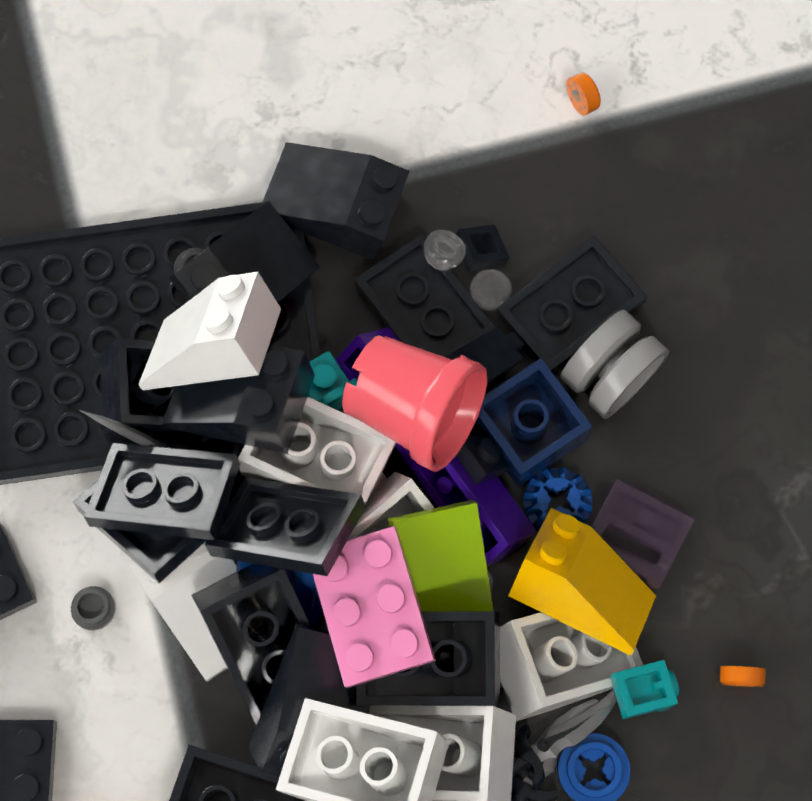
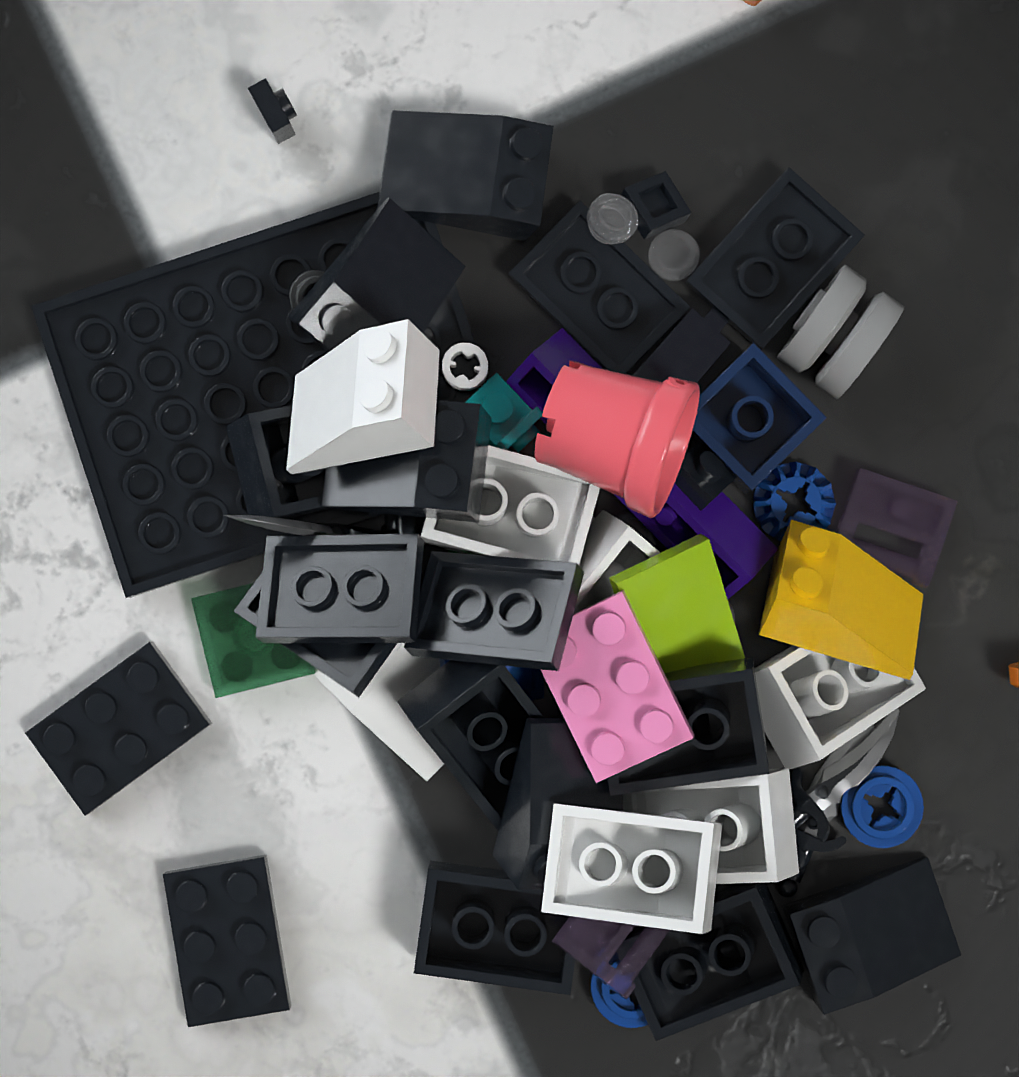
camera: 10 degrees left, 15 degrees up
(72, 546) = (233, 653): none -> clear green plate
(93, 608) = (280, 721): dark grey plate -> none
(194, 129) = (275, 109): none -> black plate
(310, 332) = (461, 382): none -> white bush
(645, 689) = (929, 711): teal bracket -> none

